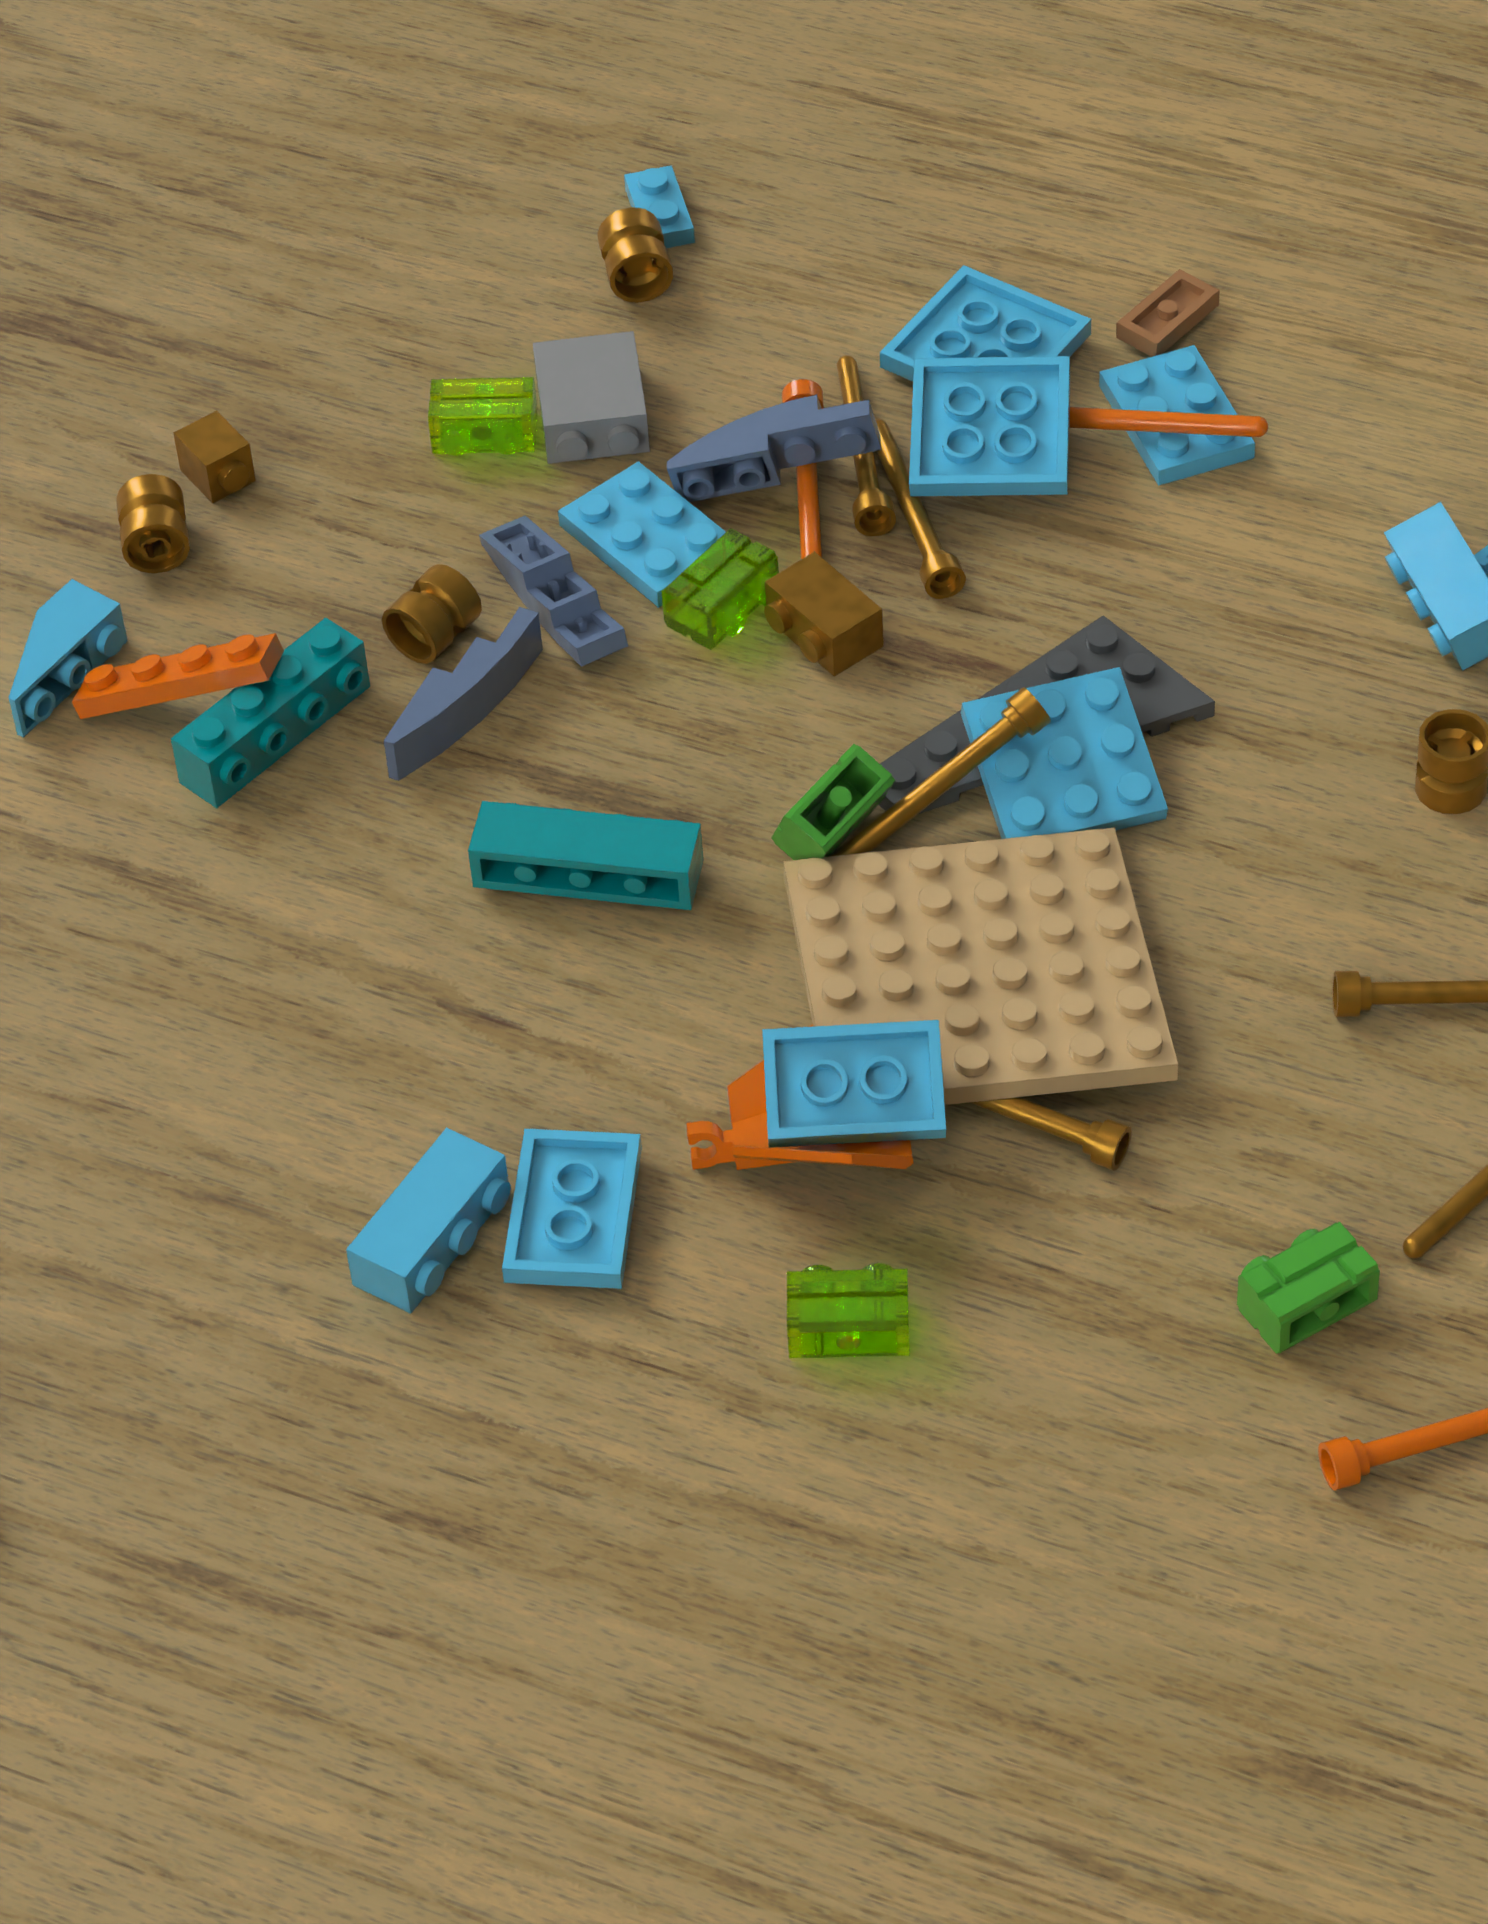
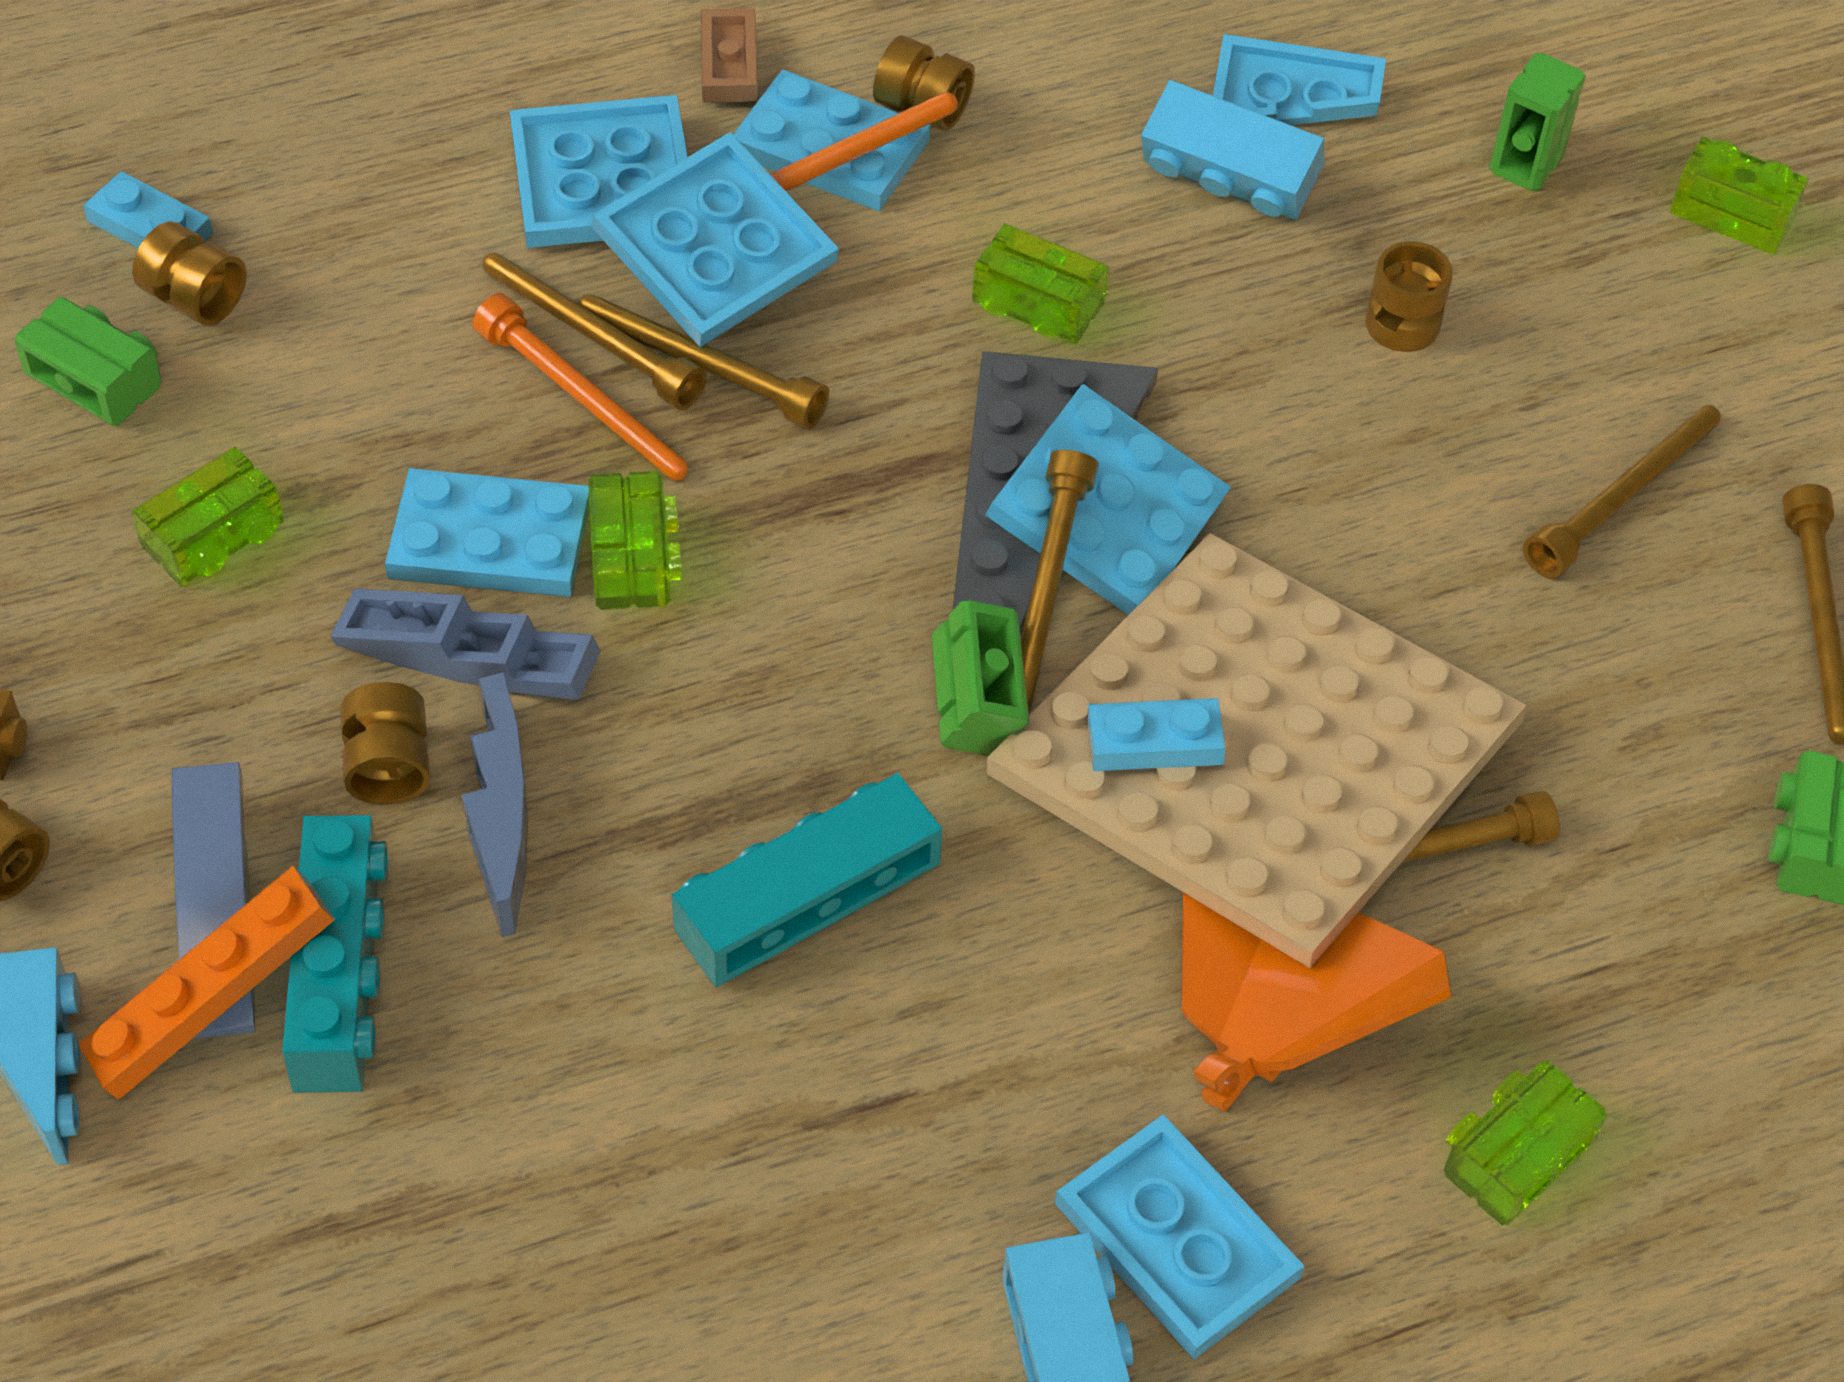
camera: 50 degrees left, 5 degrees up
(258, 608) = (210, 867): none -> sand blue slope
(519, 276) = (89, 360): none -> bright green brick
(591, 397) = (299, 432): light grey brick -> none
(756, 447) = (524, 384): sand blue slope -> none
(823, 614) = (748, 503): pearl gold brick -> none
(854, 1083) = (1336, 921): medium azure plate -> none
(894, 910) = (1156, 734): none -> medium azure plate
(1195, 595) = (1039, 284): none -> clear neon green brick
(1279, 396) = (913, 75): none -> pearl gold wheel

